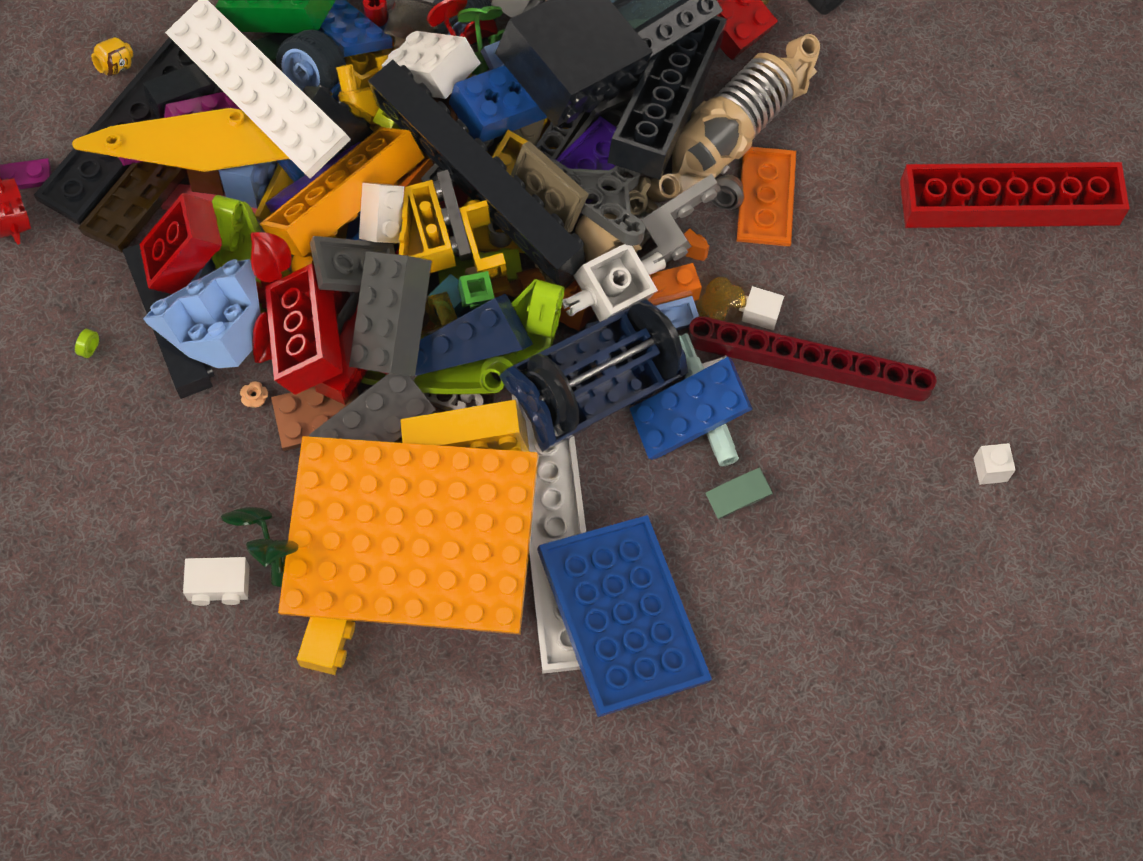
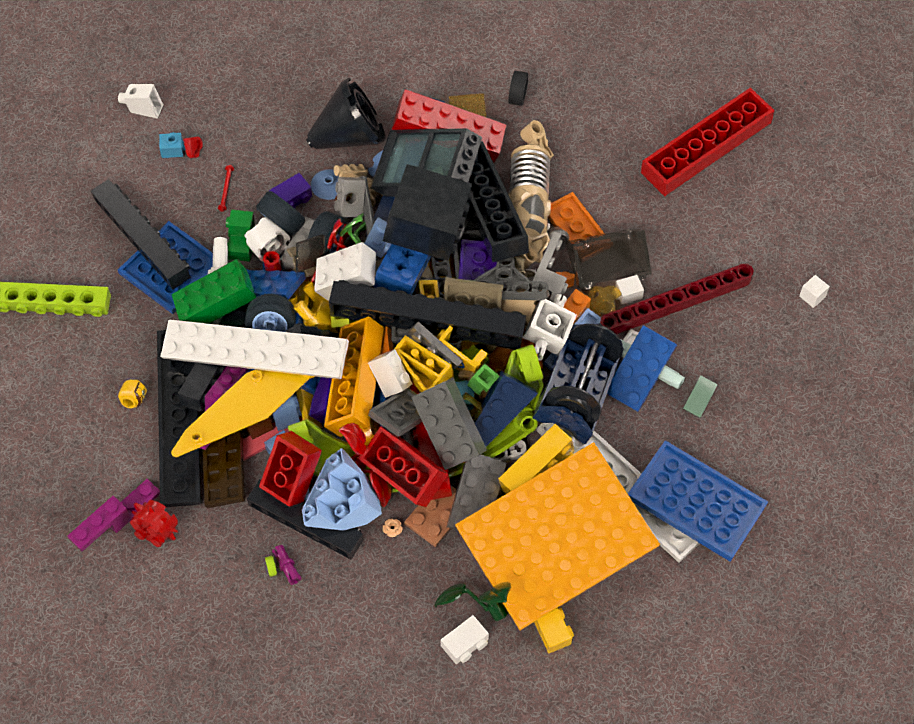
camera: 35 degrees left, 5 degrees down
(105, 354) = (286, 564): none -> magenta pin
(766, 253) = (609, 257): none -> clear smoke windscreen

